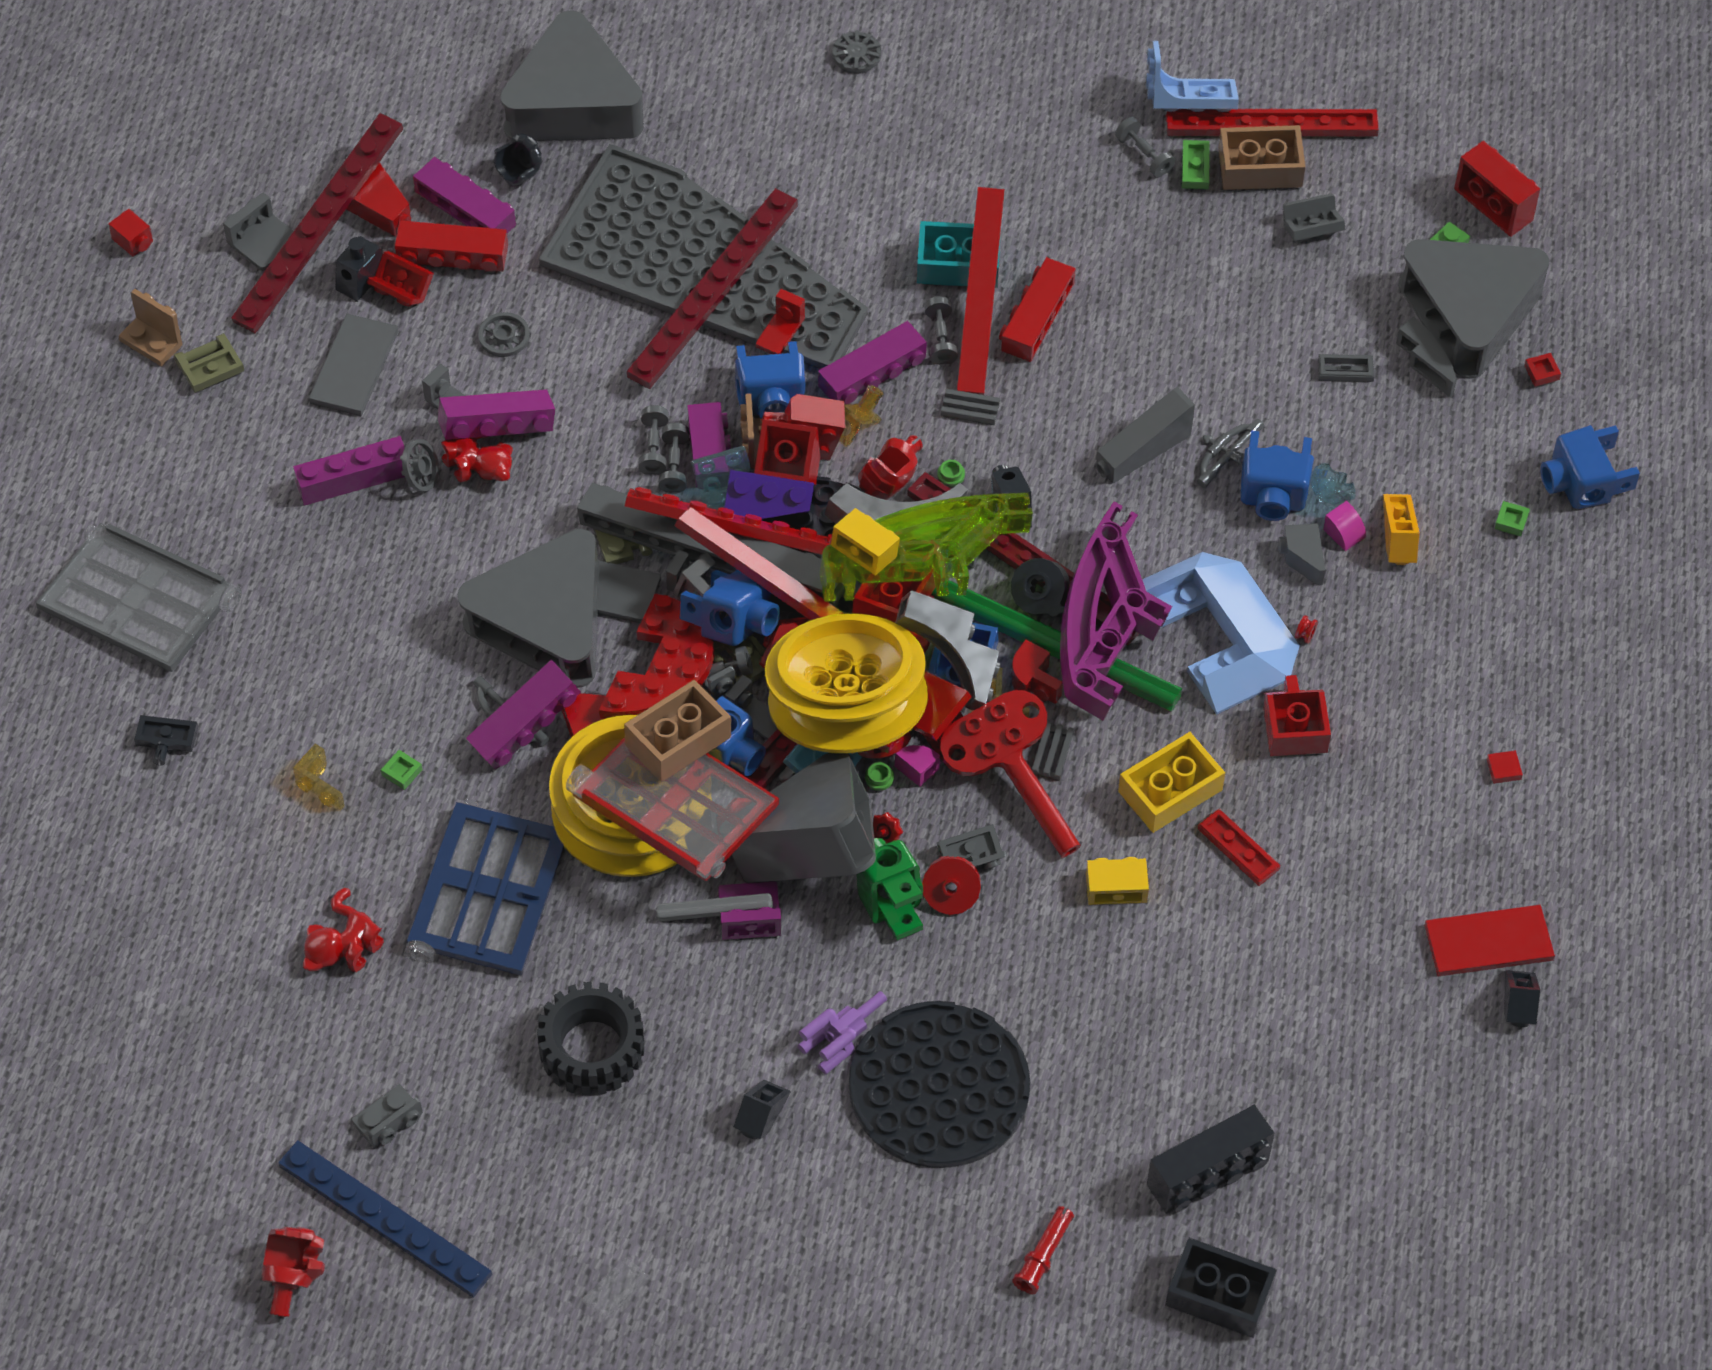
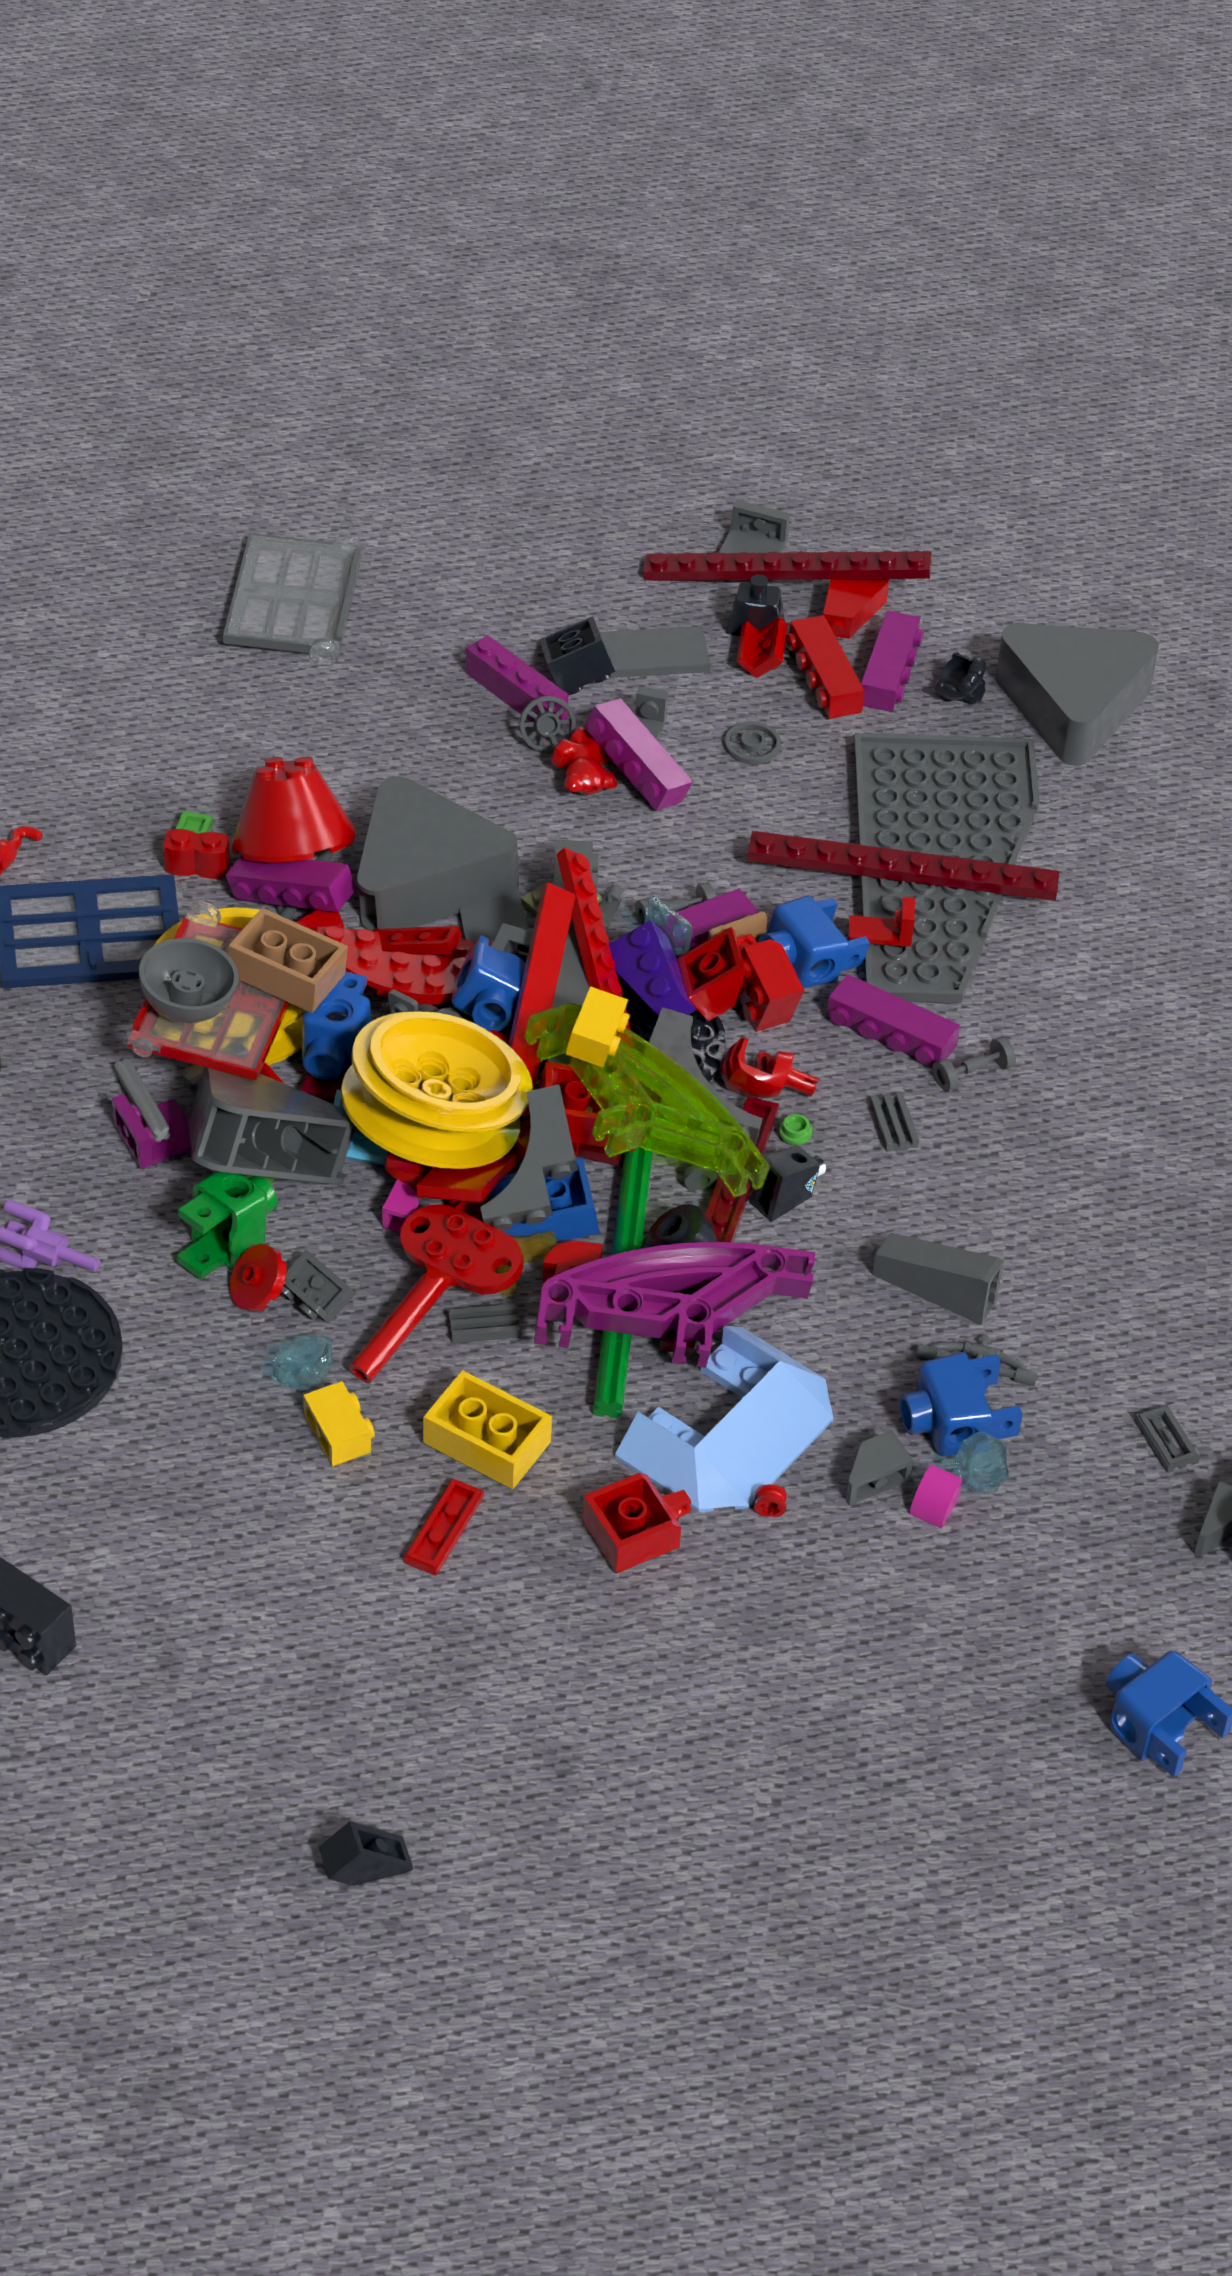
camera: 65 degrees right, 10 degrees down
(131, 232) = (698, 459): red brick -> none
(154, 329) = (592, 509): medium nougat bracket -> none
(165, 735) = (149, 660): black plate -> none
(211, 368) = (585, 557): olive plate -> none
(307, 779) = (156, 762): clear yellow bracket -> none
(341, 413) = (577, 656): none -> black slope
(440, 776) = (196, 853): none -> red brick
(461, 689) = (290, 814): none -> red cone
(630, 650) = (420, 939): none -> red tile
(655, 417) = (717, 876): dark grey wheel -> none
(684, 803) = (188, 979): none -> dark grey piece
(862, 413) = (823, 1031): clear yellow bracket -> none
(879, 776) = (374, 1186): bright green plate -> none
(887, 827) = (308, 1209): red piece -> none
(945, 253) = (1079, 1043): teal brick -> none
(980, 290) = (1033, 1066): red tile -> none
(1037, 309) = (1056, 1135): red brick -> none
(1048, 882) = (303, 1361): none -> clear light blue hair
(1400, 529) = (962, 1549): light orange slope -> none
(1489, 940) = (435, 1807): red tile -> none
(1504, 767) = (688, 1754): red tile -> none
(1512, 518) = (1049, 1660): bright green plate -> none

